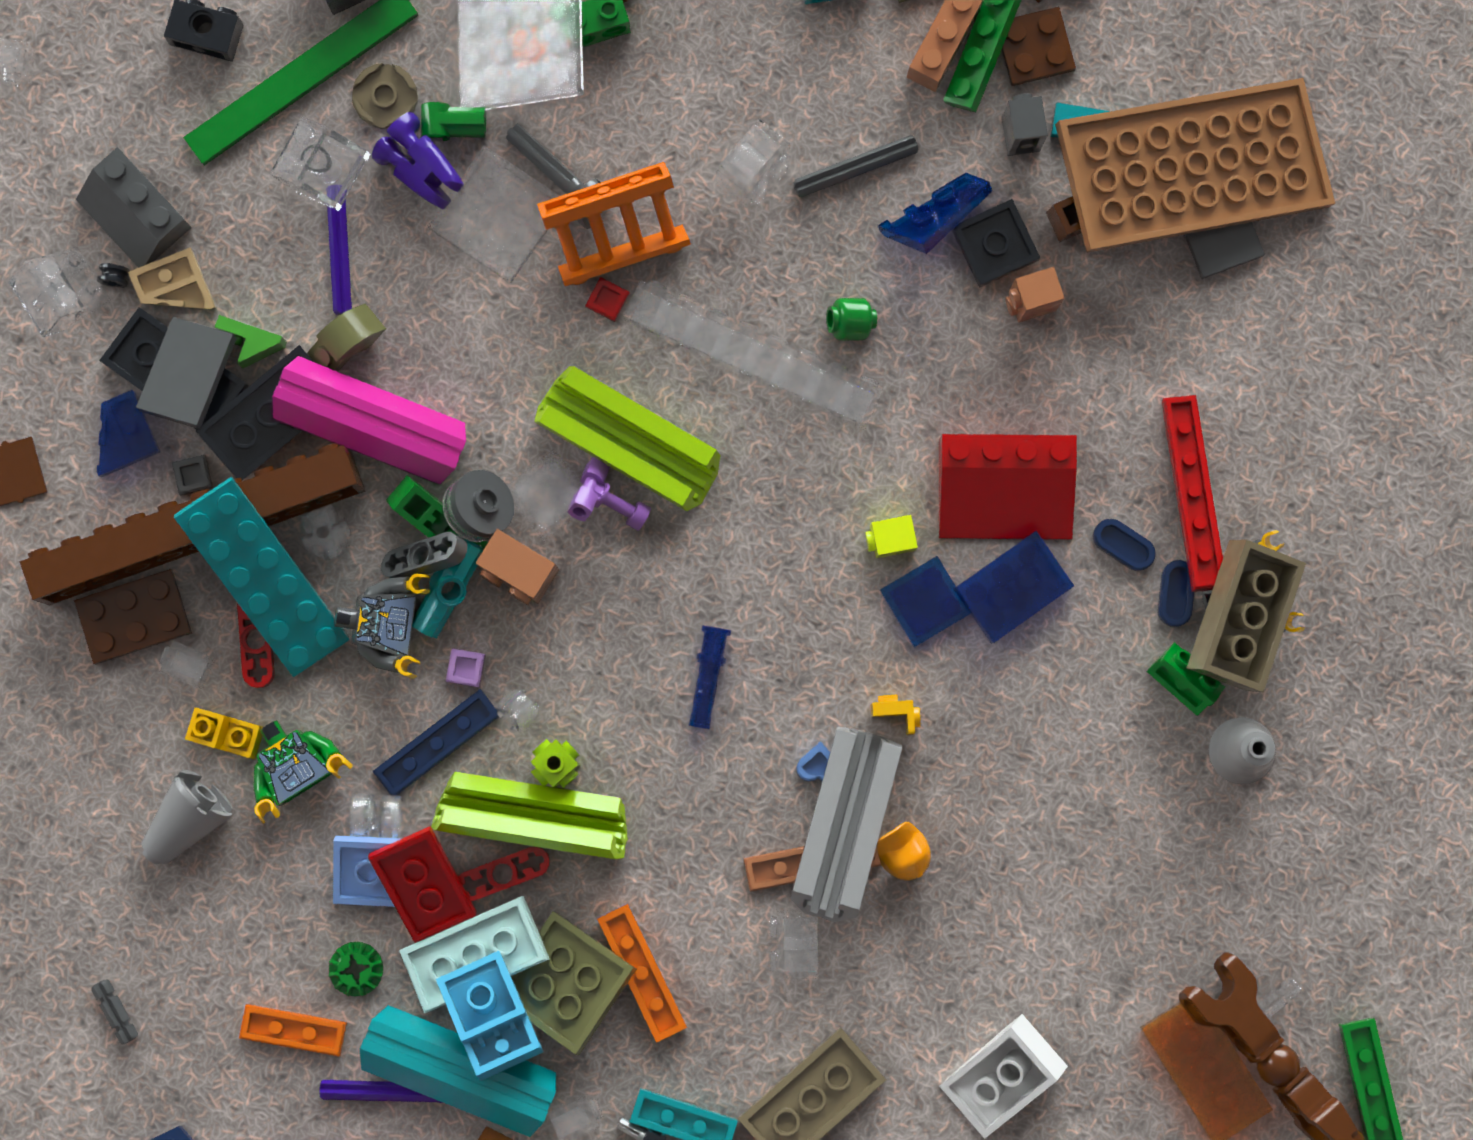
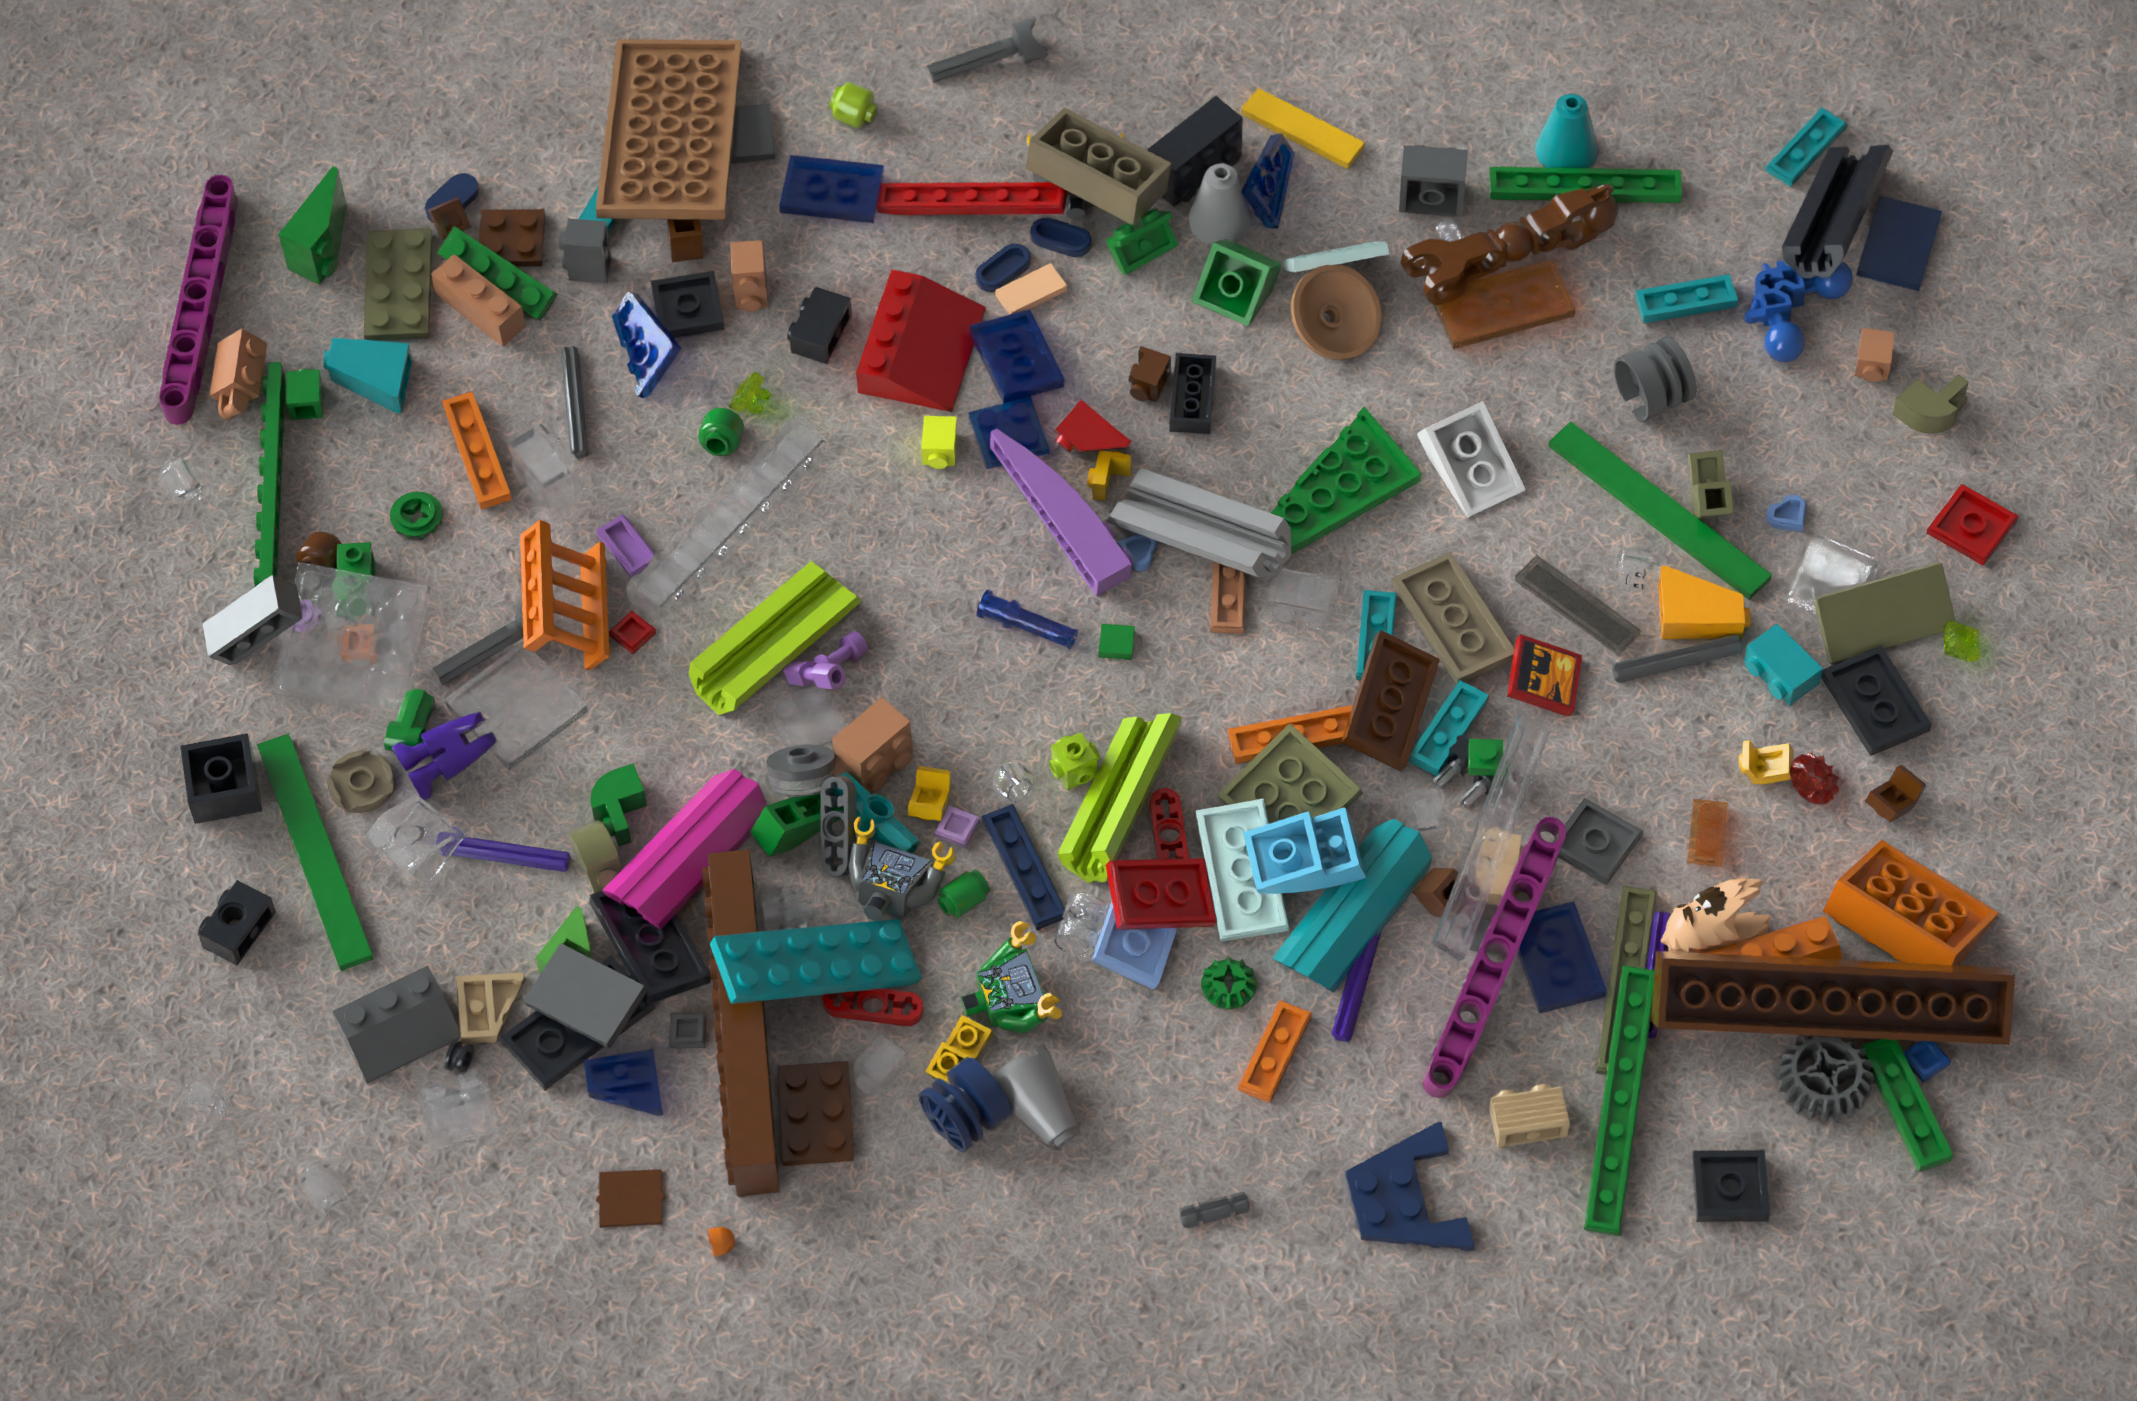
camera: 70 degrees left, 25 degrees down
(148, 751) = (965, 1104): none -> dark blue wheel
(388, 693) = (963, 893): none -> green brick
(411, 332) = (614, 795): none -> green brick
(486, 634) = (930, 793): none -> yellow bracket
(677, 43) = (410, 504): none -> green gear
(694, 1058) = (1390, 700): none -> reddish brown plate
(702, 266) = (626, 545): none -> medium lavender tile
(708, 769) = (1116, 641): none -> green tile
(774, 89) = (476, 450): none -> orange plate
(776, 1024) = (1376, 615): none -> teal tile
(824, 694) = (1066, 515): none -> medium lavender slope
(903, 331) = (747, 392): none -> clear neon green tile
(904, 852) = (1243, 485): light orange piece -> none
(928, 686) = (1088, 431): none -> red slope
(946, 954) = (1346, 481): none -> green wing
(1002, 380) = (819, 325): none -> black brick
(1015, 775) = (1192, 393): none -> black piece
(1023, 725) = (1149, 374): none -> reddish brown brick
(1103, 580) = (1031, 290): none -> light nougat tile
(1141, 917) = (1350, 306): none -> medium nougat dish
(1163, 787) = (1236, 281): none -> green slope
(1174, 346) = (831, 189): none -> clear blue plate
(1212, 884) = (1335, 256): none -> light aqua tile
(1281, 340) = (853, 105): none -> lime head
(1295, 792) = (1269, 181): none -> clear blue wing
(1308, 710) = (1200, 141): none -> black brick
(1334, 965) = (1433, 180): none -> dark grey brick
(1378, 809) = (1303, 128): none -> yellow tile
(1406, 490) = (1020, 42): none -> dark grey piece
(1426, 1093) = (1568, 135): none -> teal cone

